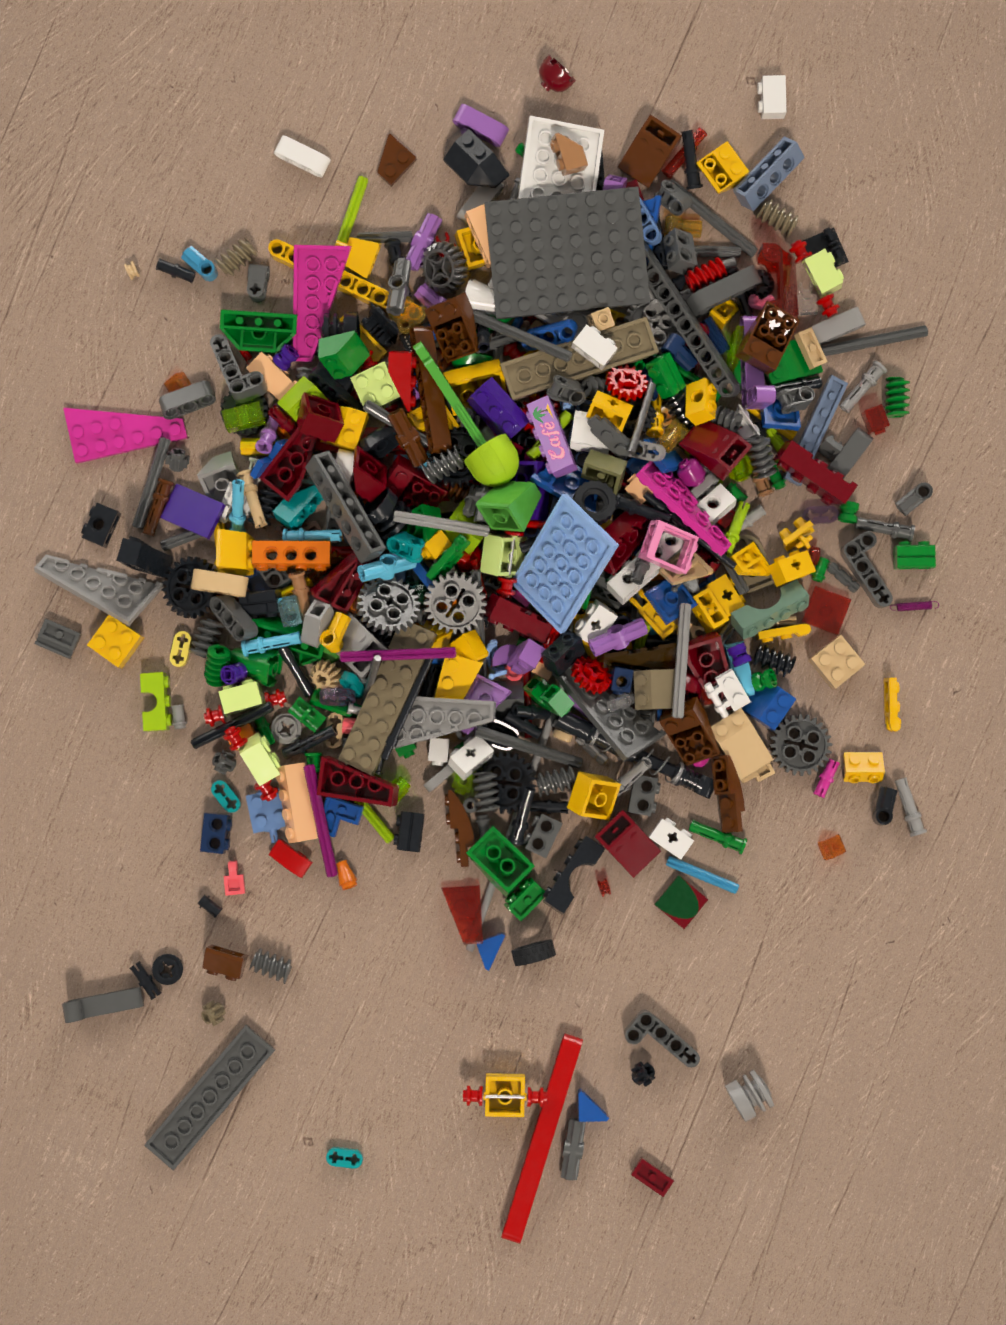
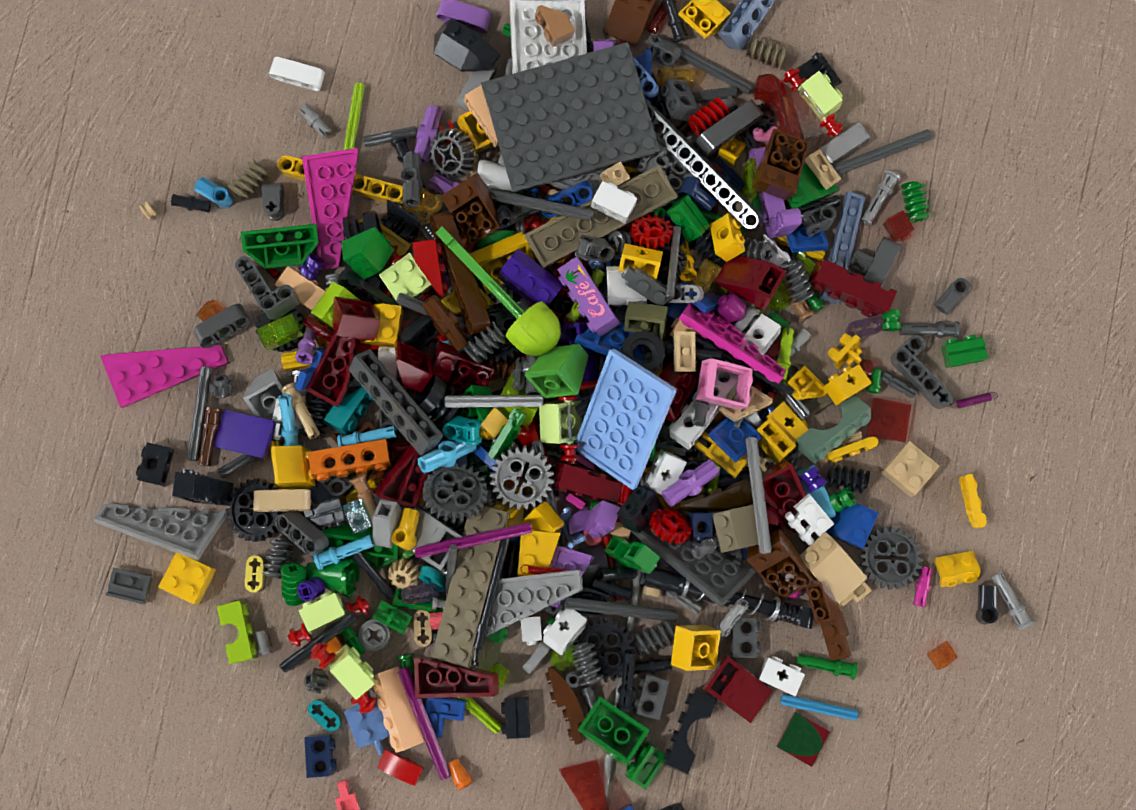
camera: 10 degrees left, 5 degrees down
(290, 751) = (383, 657): black pin -> none
(312, 208) = (315, 121): none -> light grey pin
(362, 255) = (370, 156): yellow torso -> none
(394, 161) = (387, 63): reddish brown wing -> none
(458, 695) = (537, 570): none -> red piece
(505, 634) = (576, 500): none -> dark pink tile
(604, 887) = (722, 738): clear red bush -> none
(635, 508) = (684, 351): none -> tan plate

